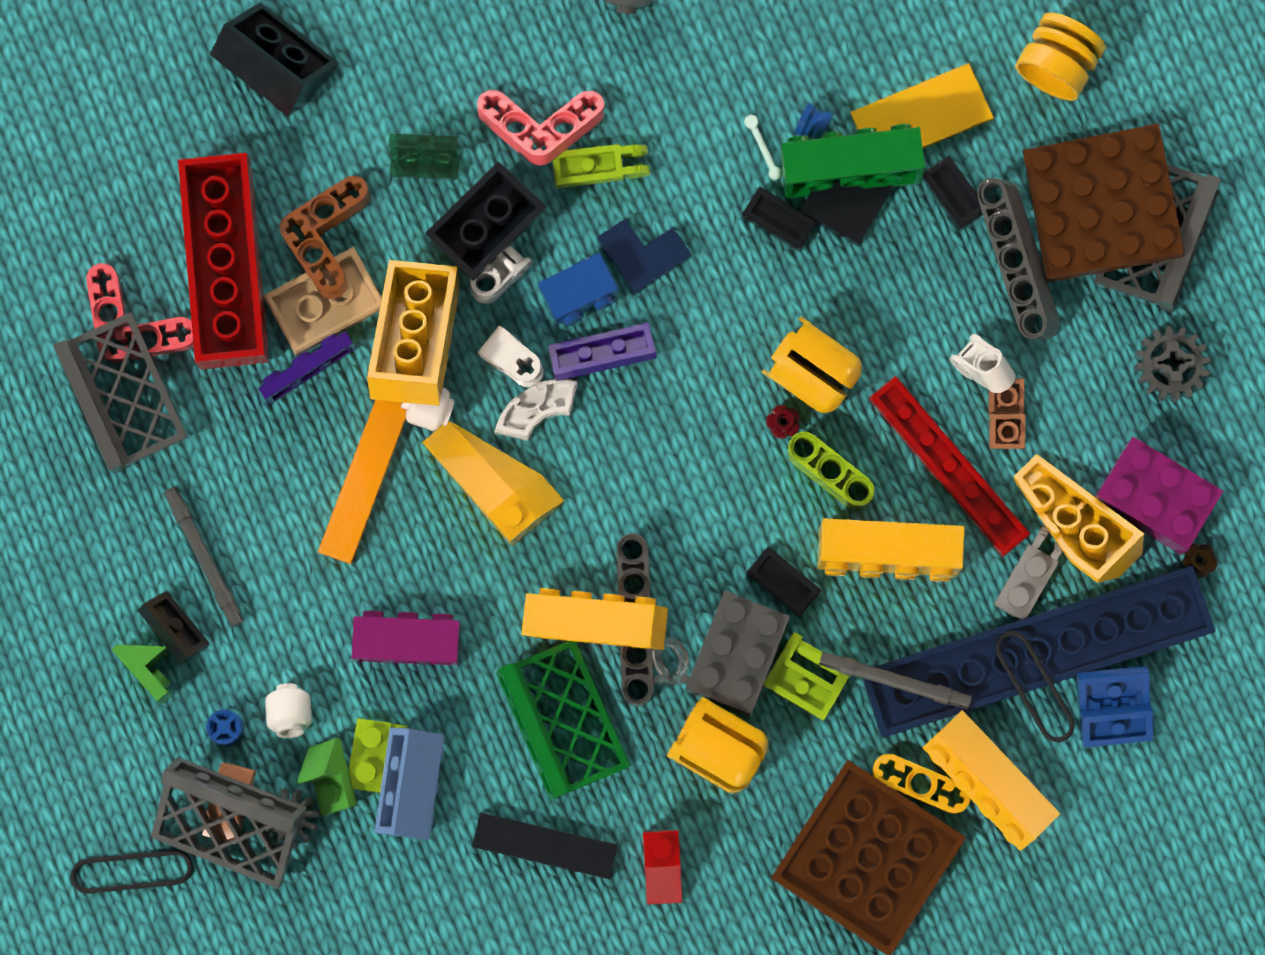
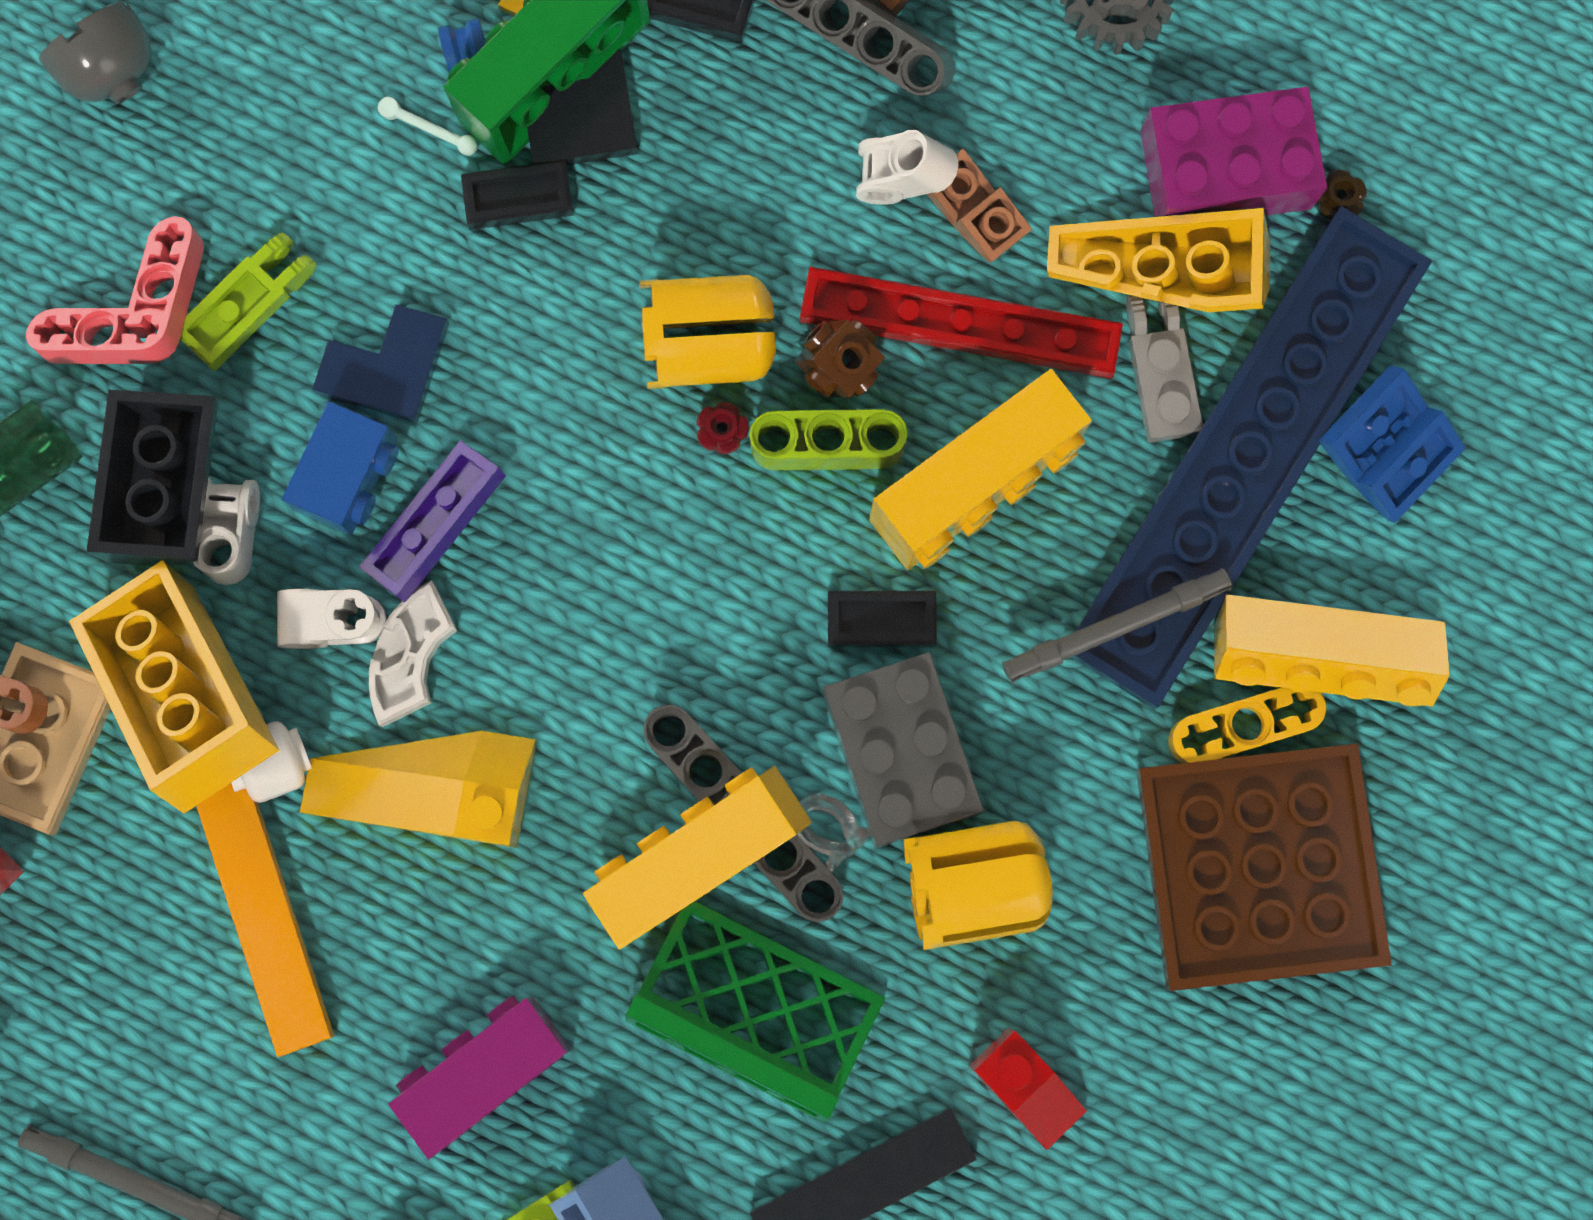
camera: 45 degrees left, 0 degrees up
(306, 367) = (75, 840): dark purple plate -> none
(801, 685) = (1006, 725): lime plate -> none
(863, 425) = (824, 364): none -> reddish brown brick
(1047, 679) = (1290, 475): black piece -> none

